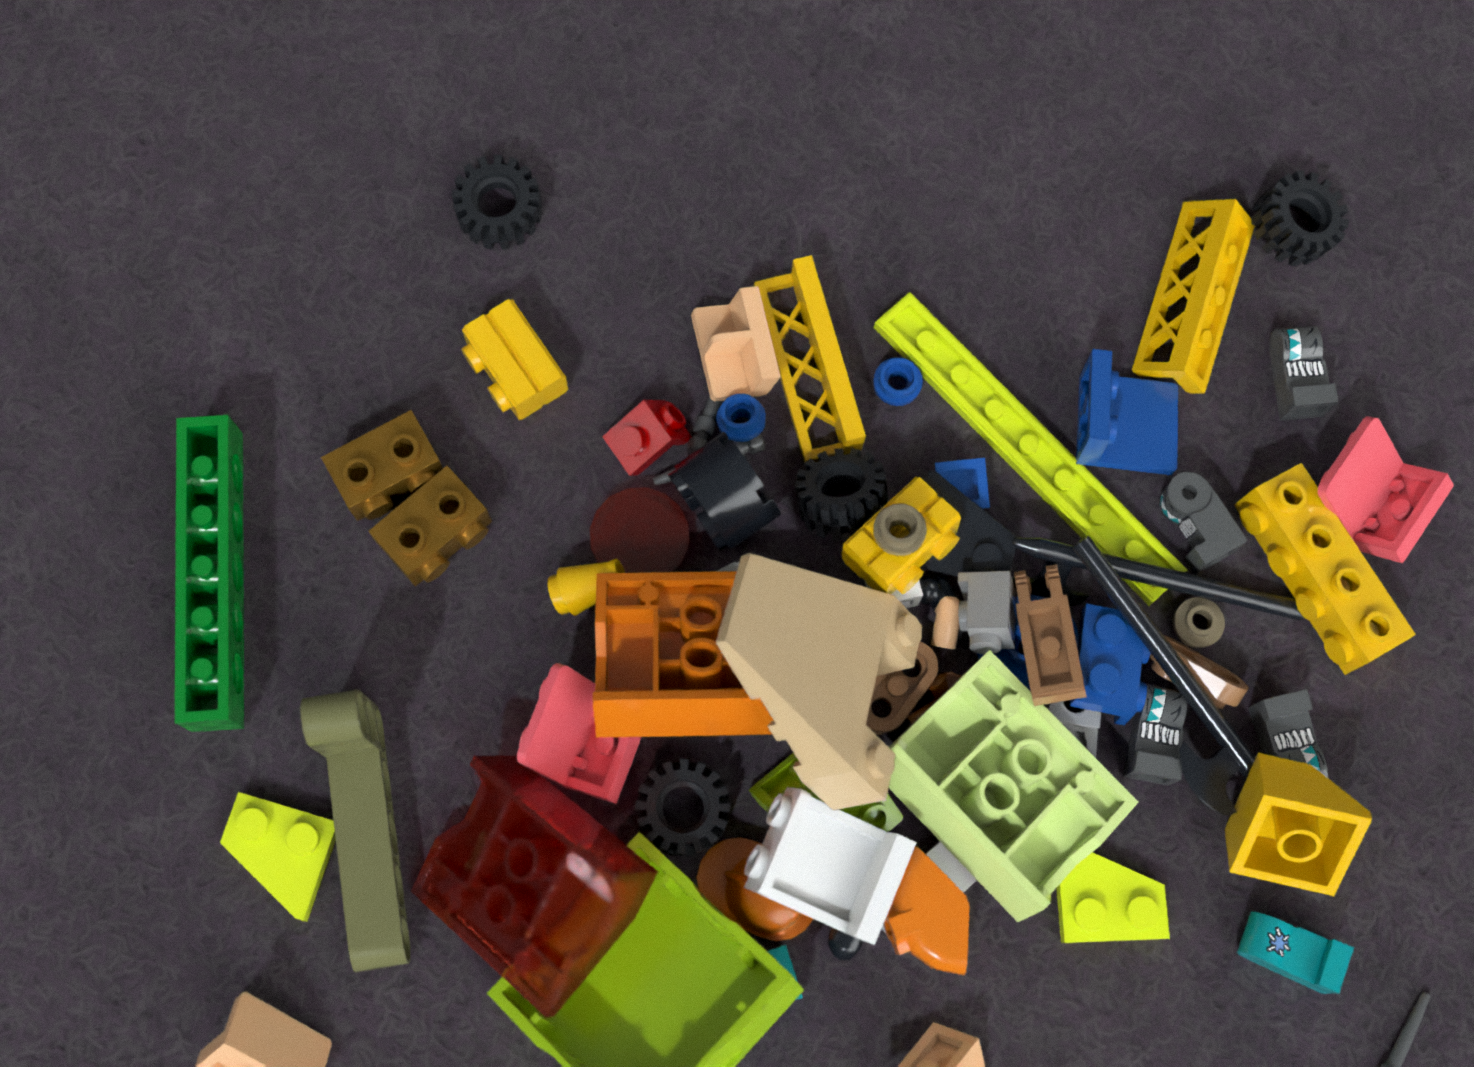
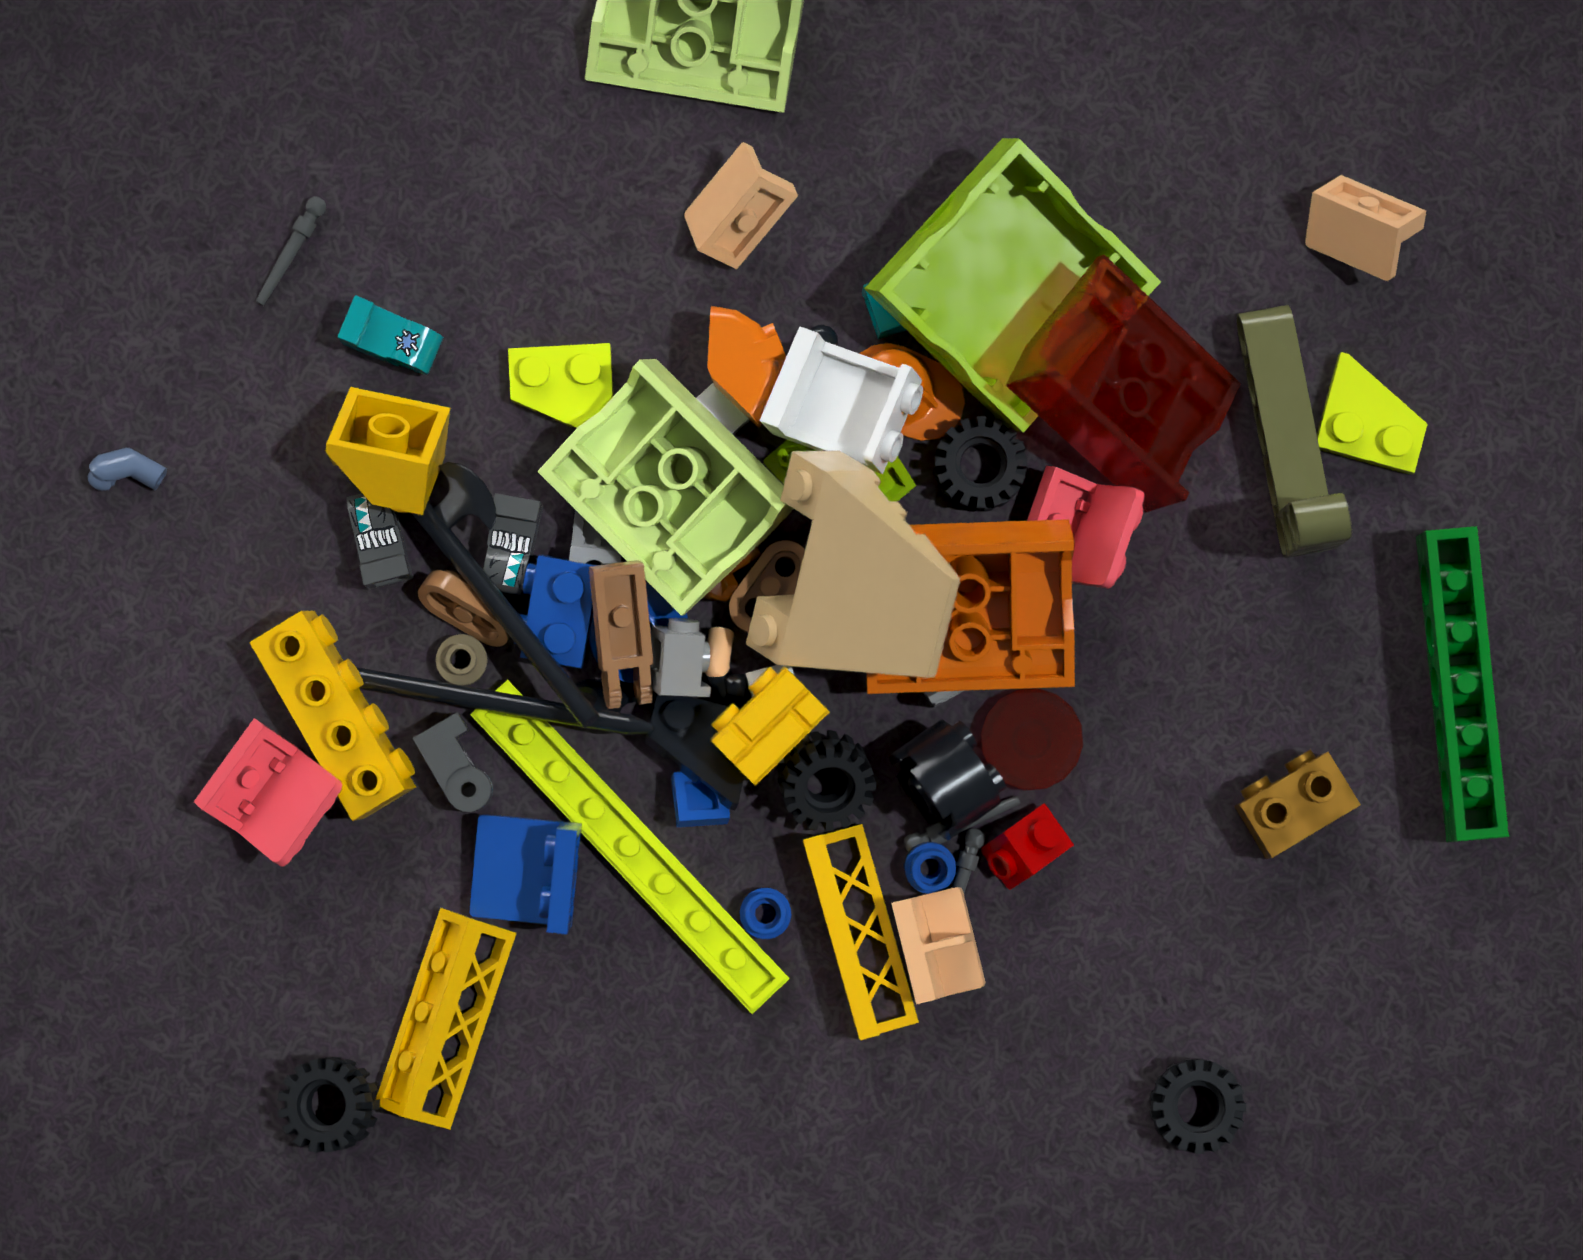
camera: 175 degrees left, 10 degrees up
(432, 527) = (1243, 740): pearl gold brick -> none
(514, 360) = (1170, 923): yellow brick -> none
(575, 586) = (1096, 681): yellow cone -> none
(899, 515) = (779, 737): dark tan plate -> none
(1300, 373) = (339, 931): dark grey leg -> none

